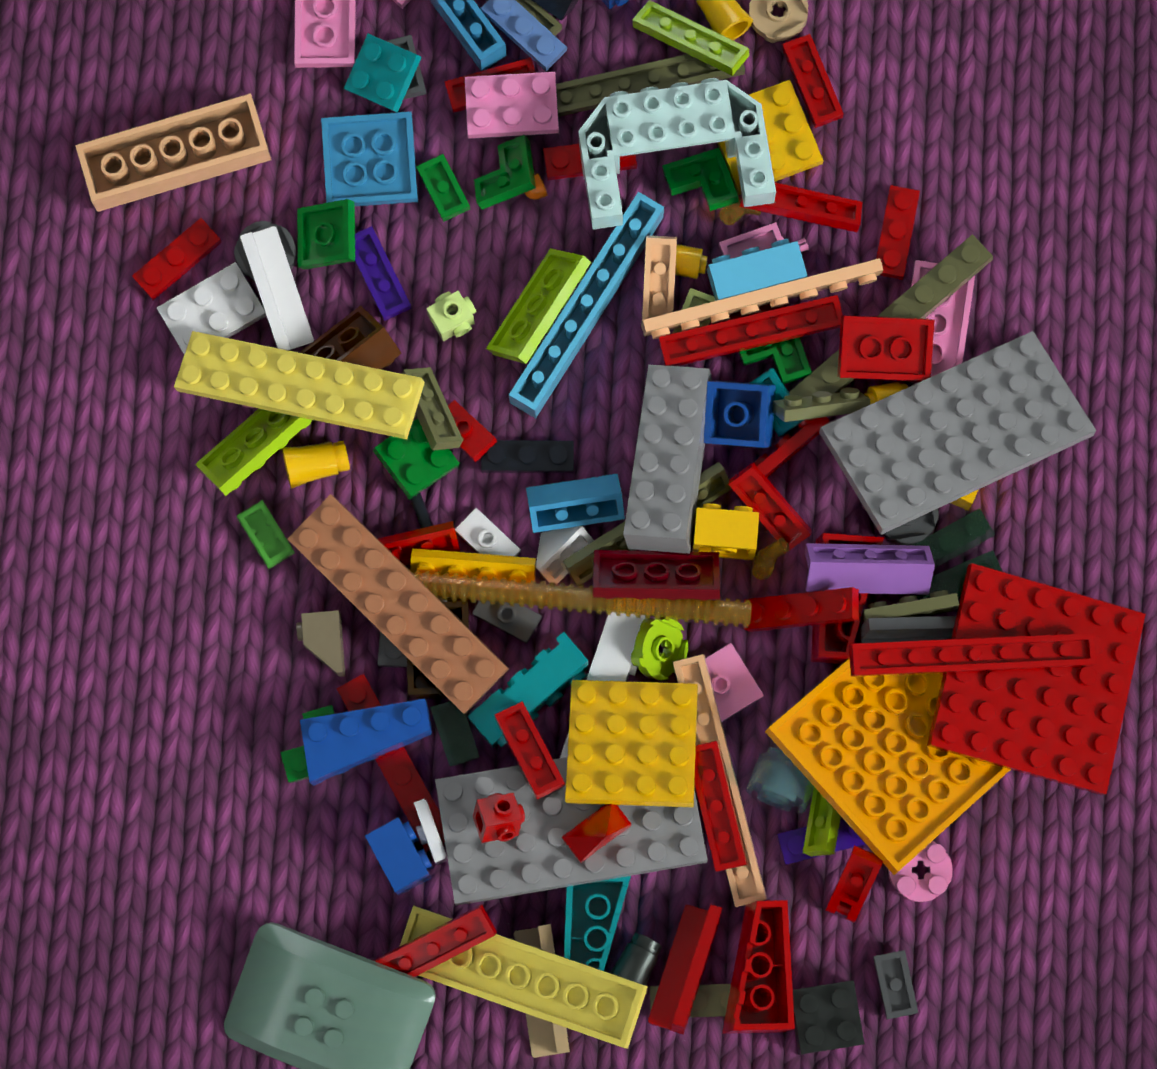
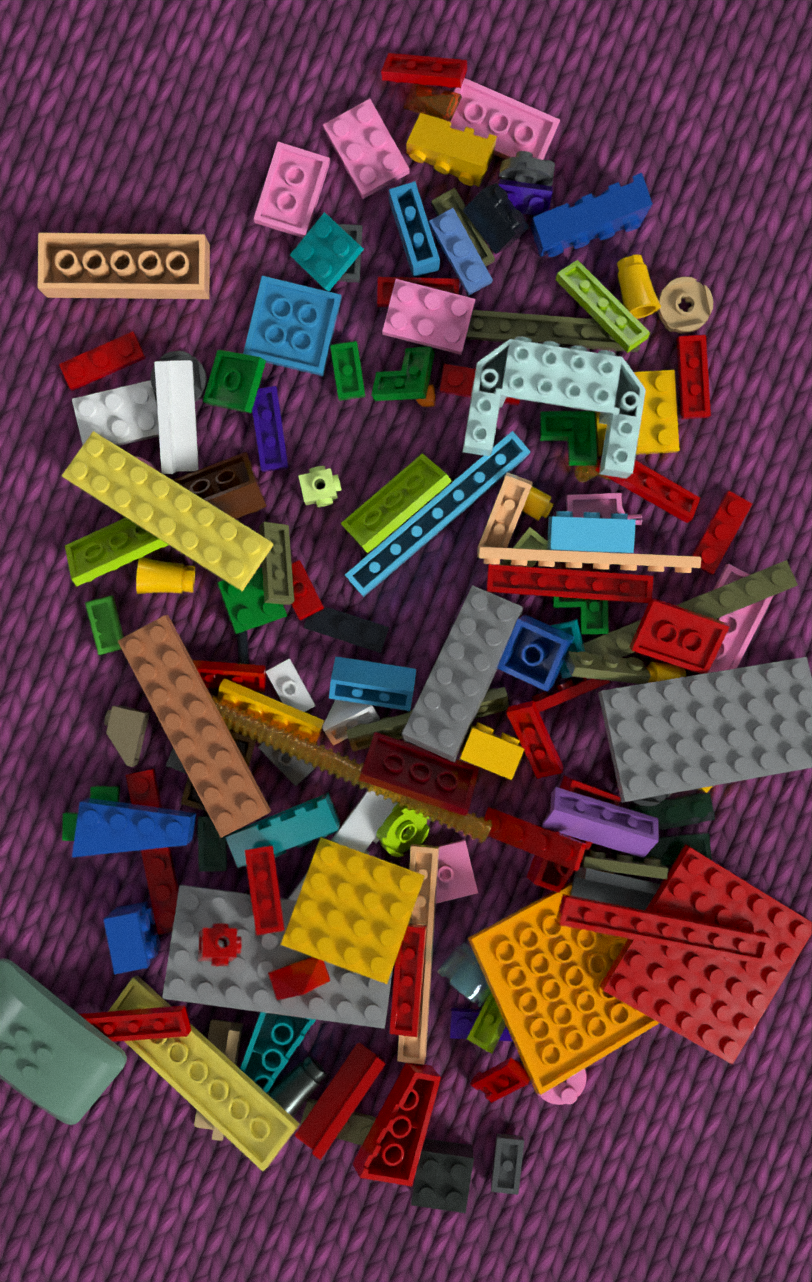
camera: 15 degrees right, 10 degrees up
(428, 831) = (163, 924): white plate -> none
(767, 558) = (520, 777): clear yellow arm -> none

